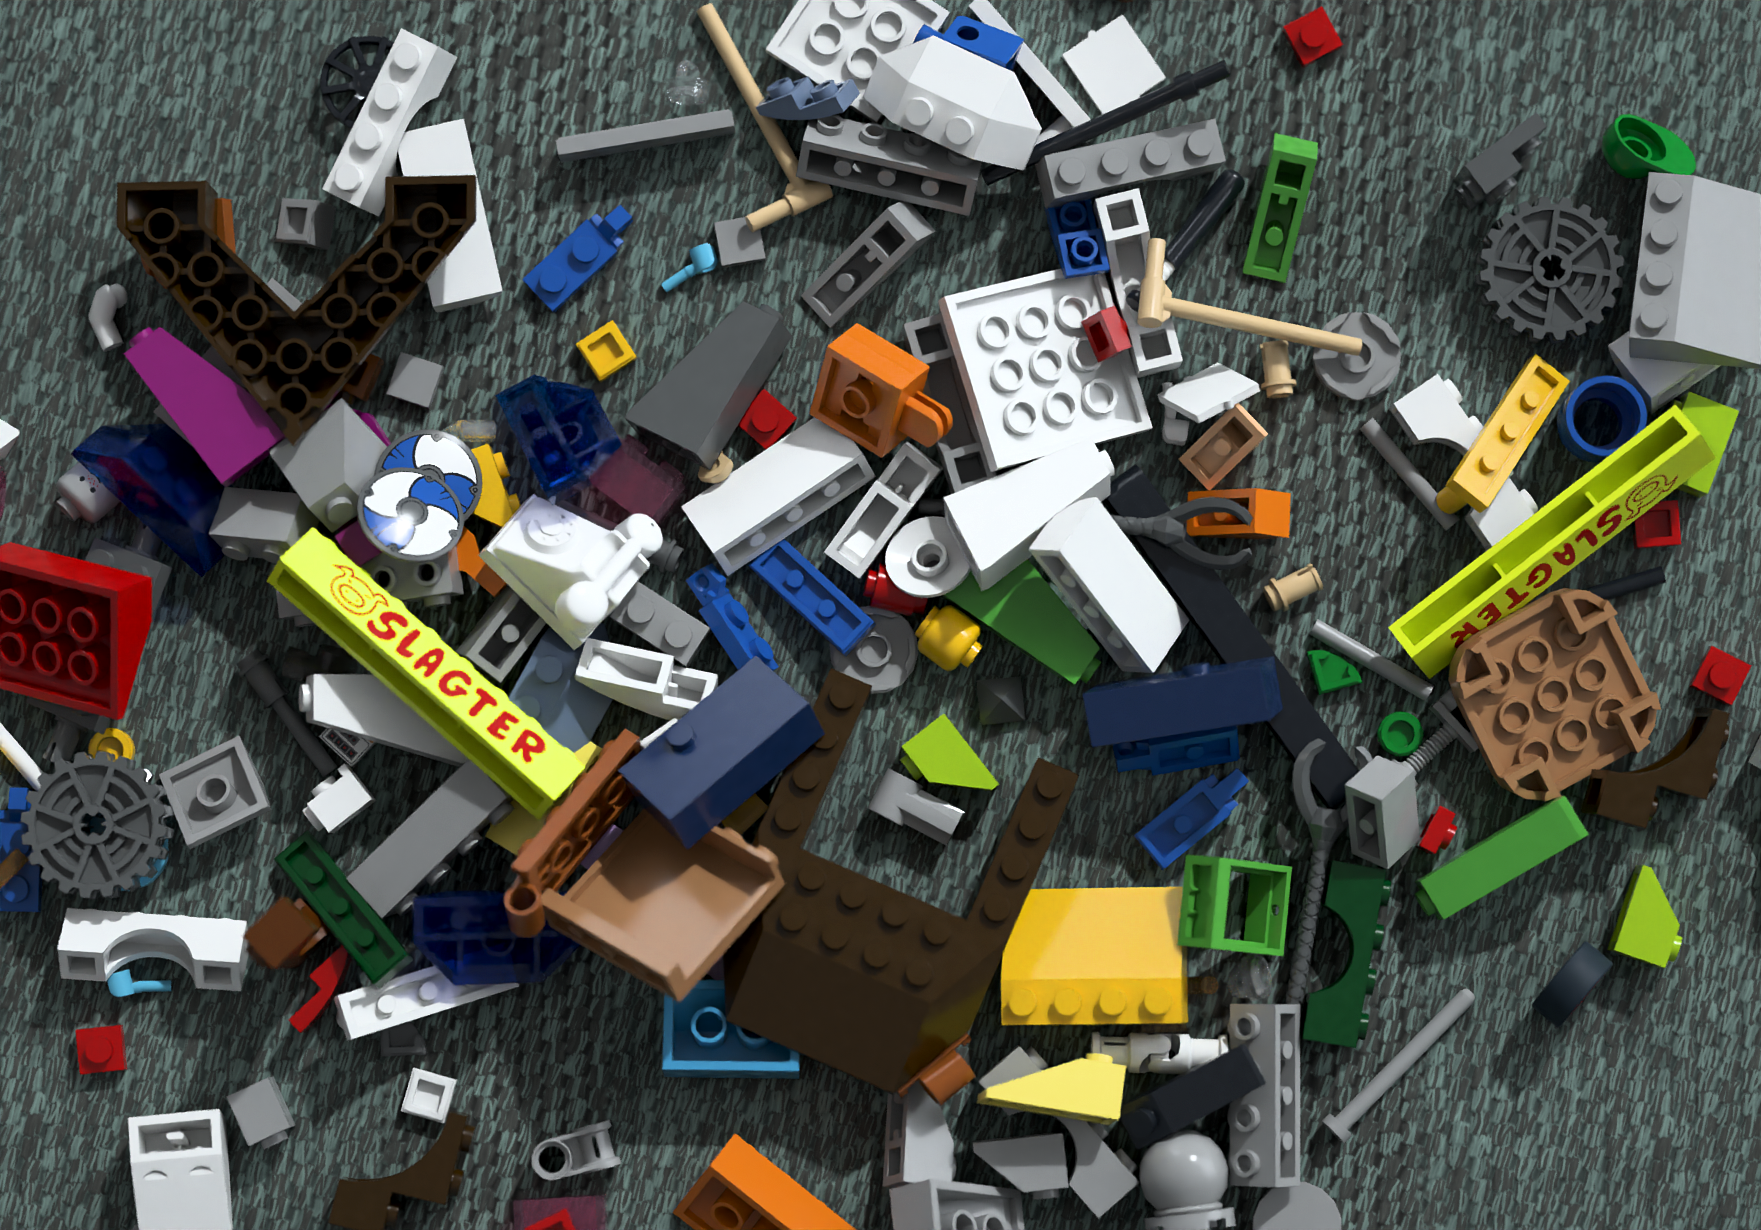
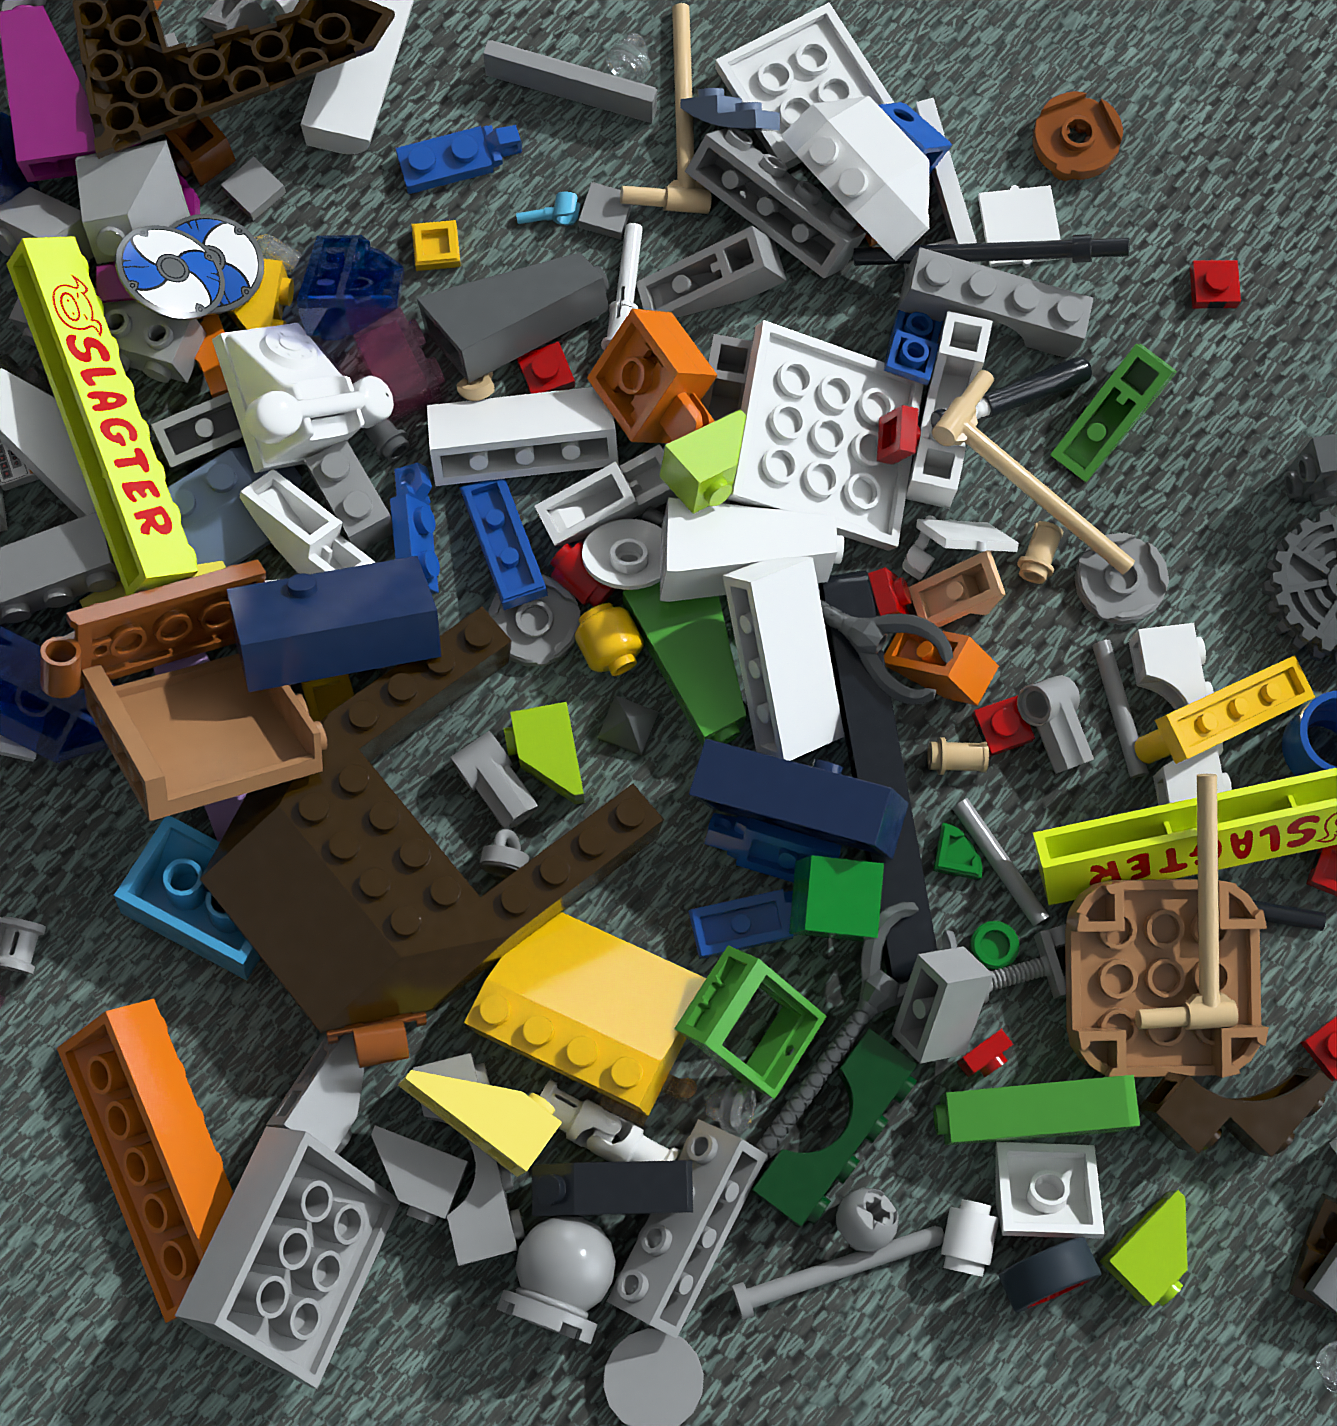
camera: 25 degrees right, 10 degrees down
(806, 331) = (627, 281): none -> white pin
(958, 872) = (503, 860): none -> light grey tile
(962, 452) = (704, 462): none -> slope
(1168, 476) = (890, 592): none -> red plate
(1254, 770) = (836, 898): none -> green head
(1317, 540) = (1002, 726): none -> red plate
(1352, 509) = (1052, 709): none -> light grey piece
(1405, 1014) = (867, 1219): none -> light grey piece
(1494, 986) = (969, 1238): none -> white brick
(1539, 915) = (1048, 1190): none -> white slope
(1601, 700) = (1210, 1006): none -> tan bar

